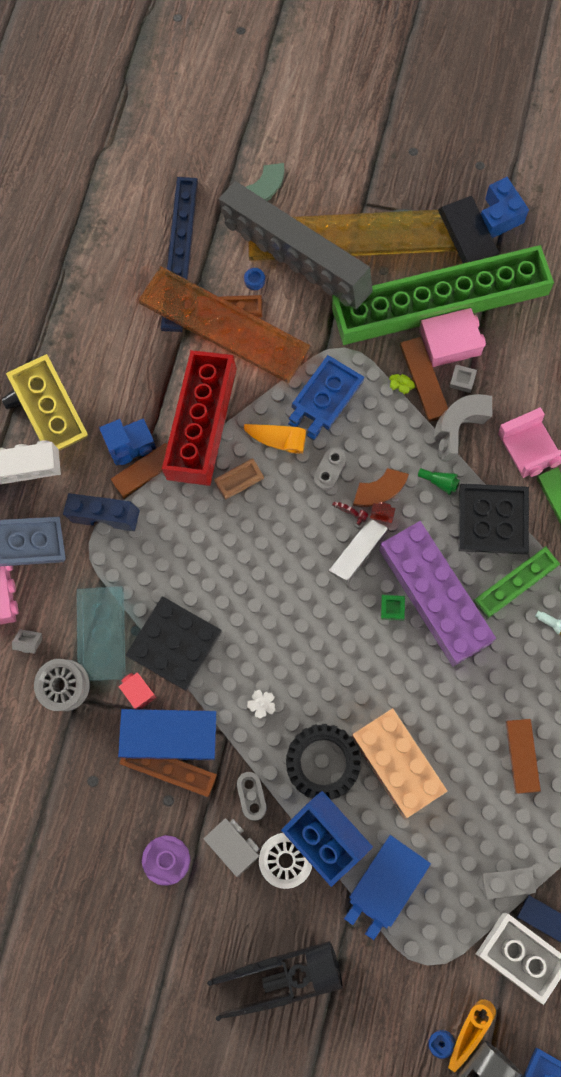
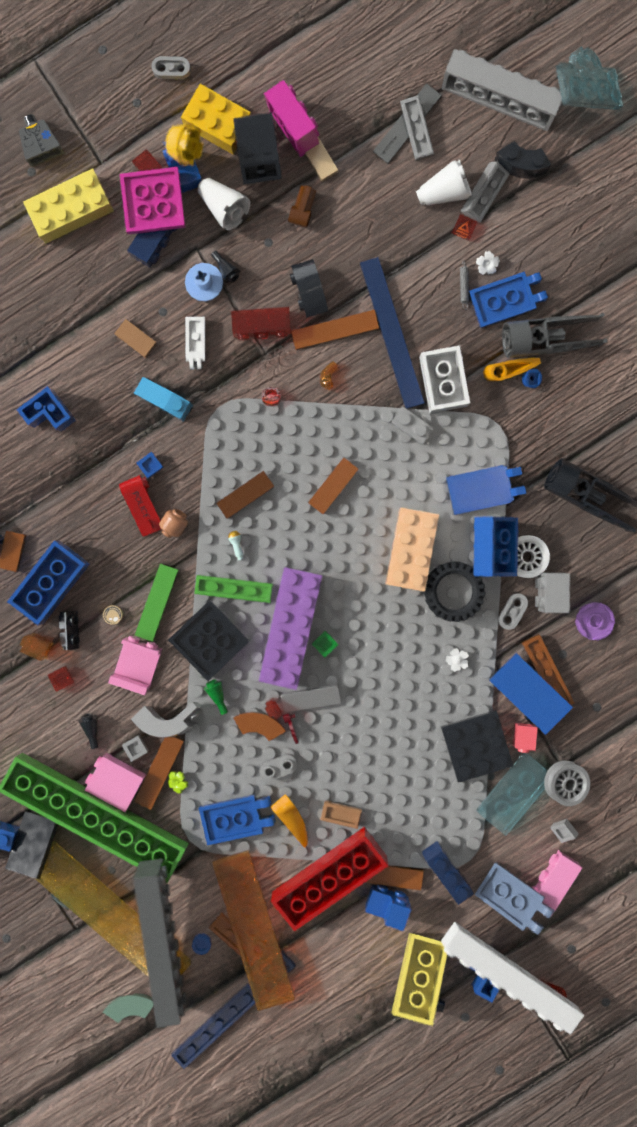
camera: 135 degrees left, 15 degrees up
(518, 362) = (89, 725): none -> black cone

